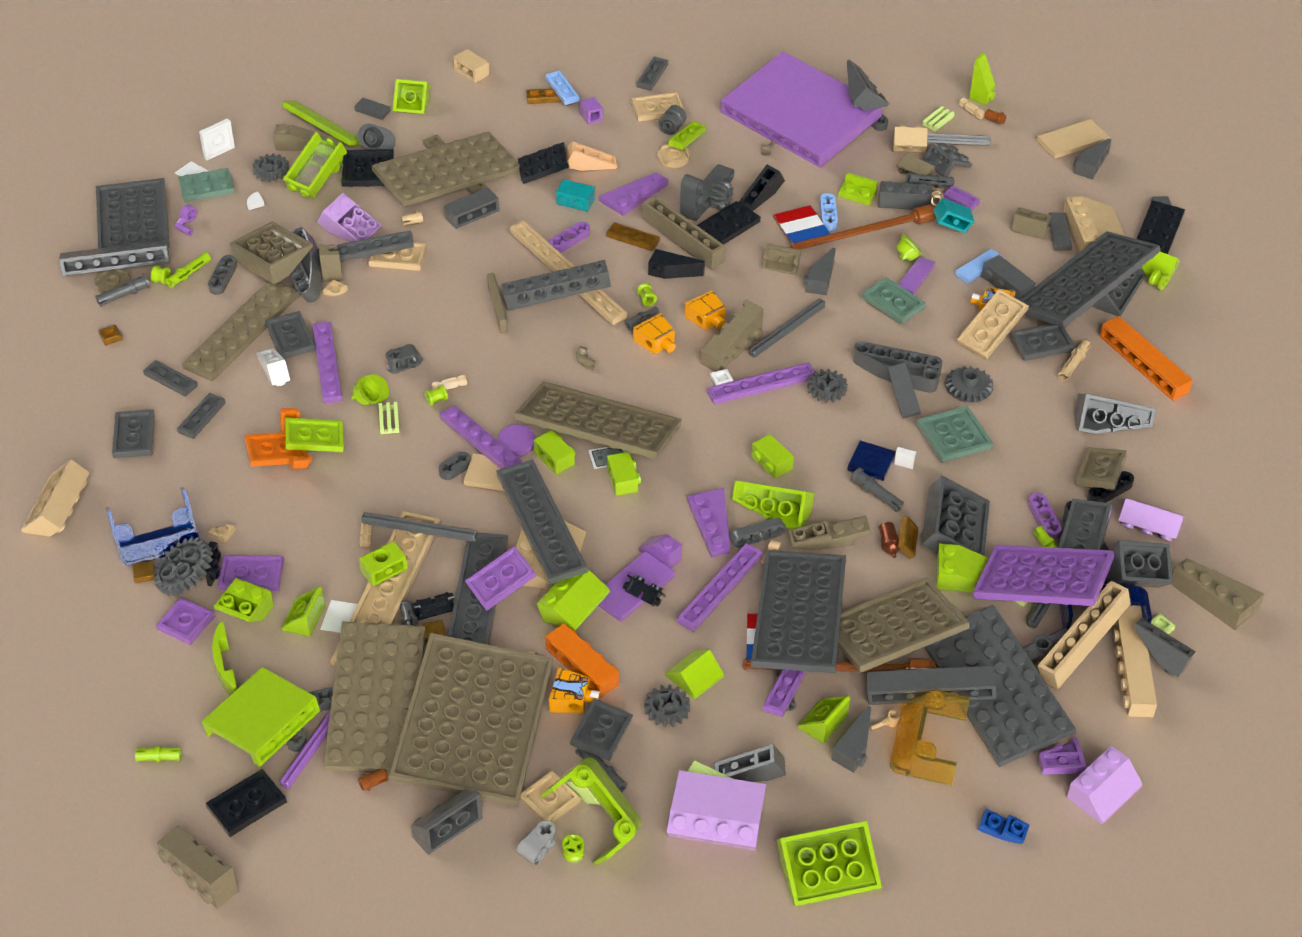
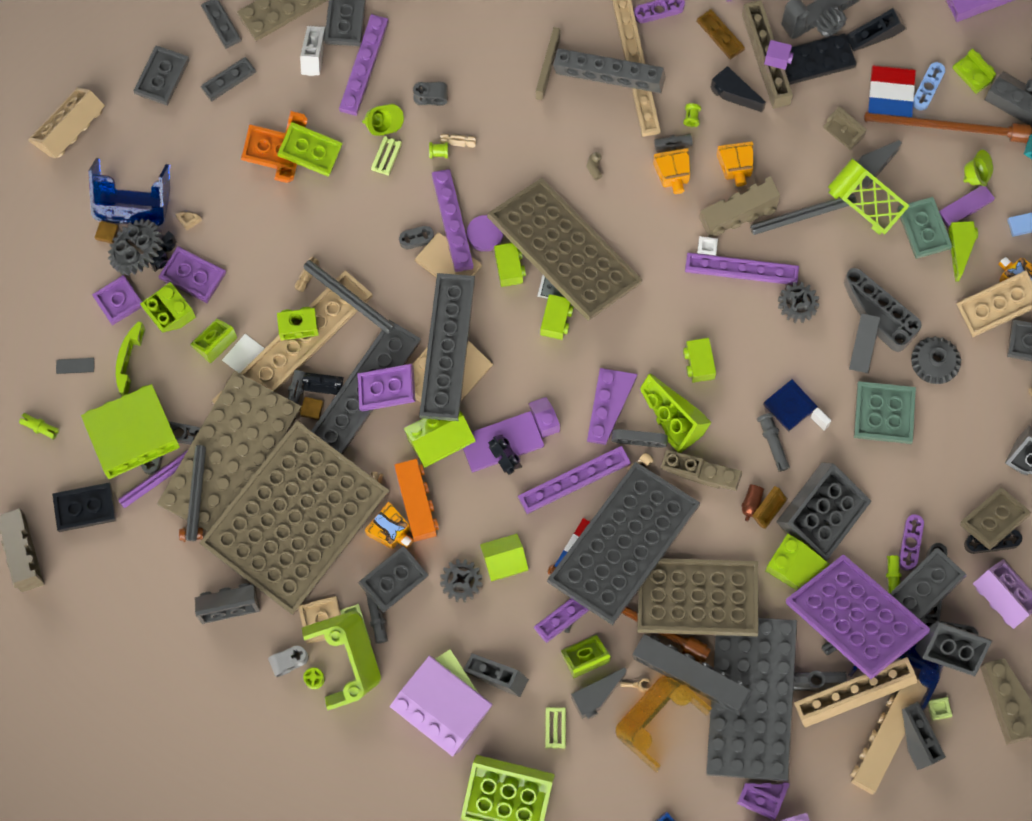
camera: 30 degrees right, 25 degrees up
(168, 692) = (74, 365): none -> dark grey sticker
(361, 736) = (195, 493): none -> dark grey axle
(696, 221) = (778, 54): none -> medium lavender brick
(811, 285) = (846, 183): none -> lime piece
(831, 798) = (555, 744): none -> yellowish green tile
(933, 295) = (962, 239): none -> lime slope

